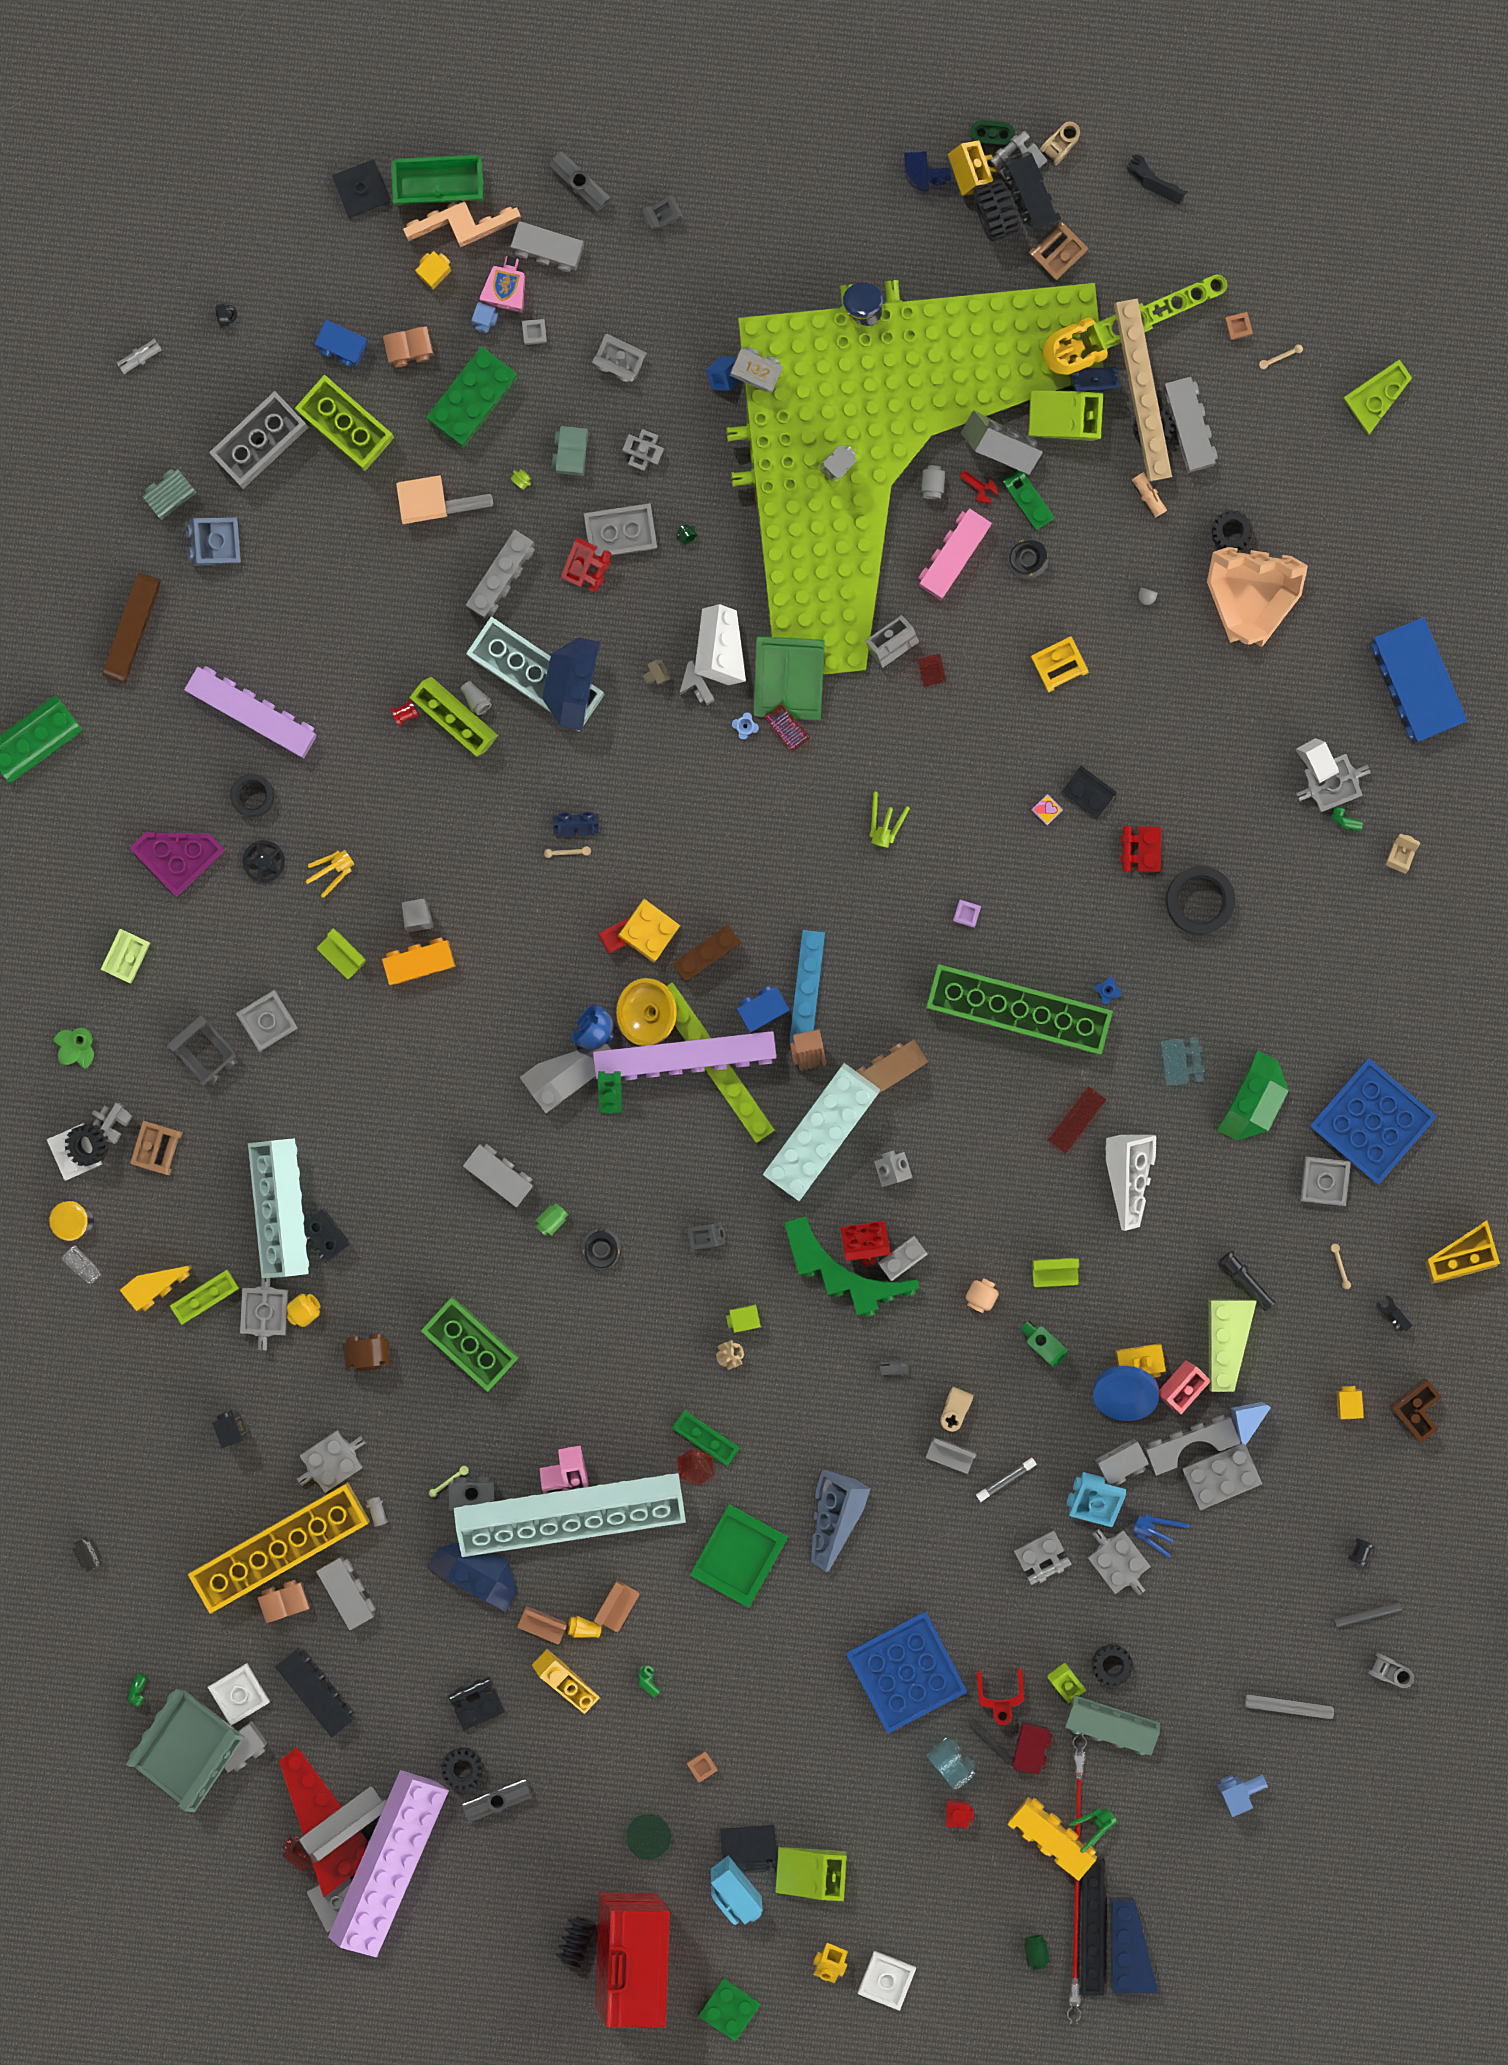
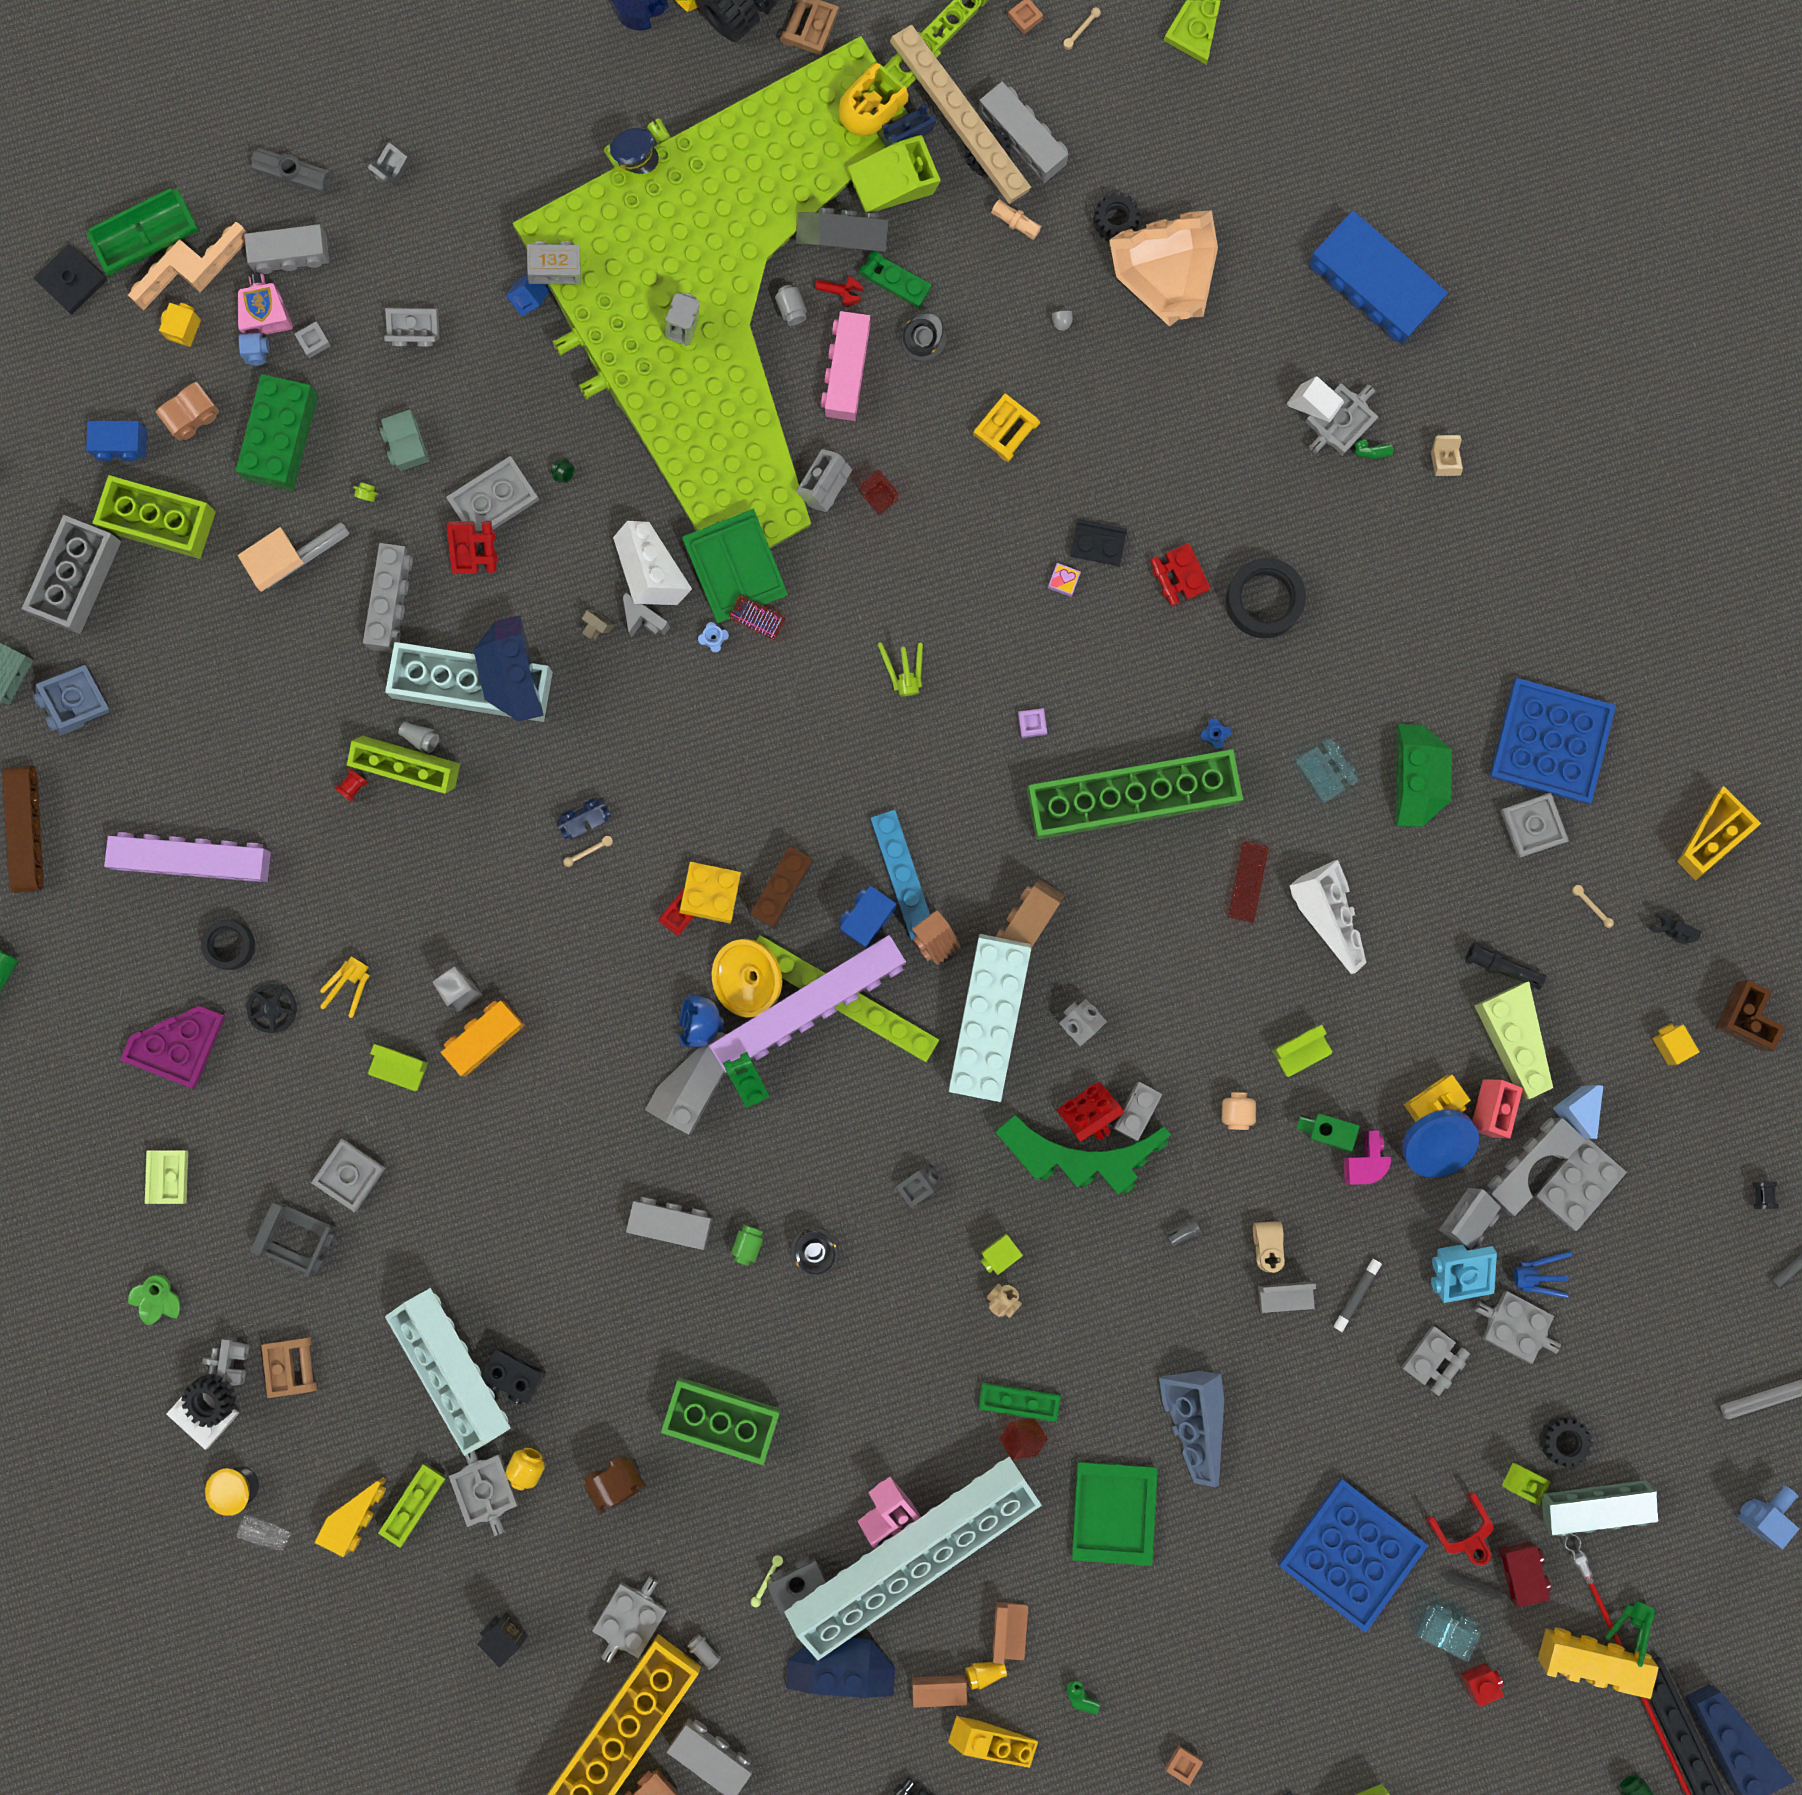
camera: 25 degrees left, 5 degrees down
(643, 449) = (475, 407): light grey piece -> none
(1063, 1386) = (1371, 1166): none -> dark pink brick

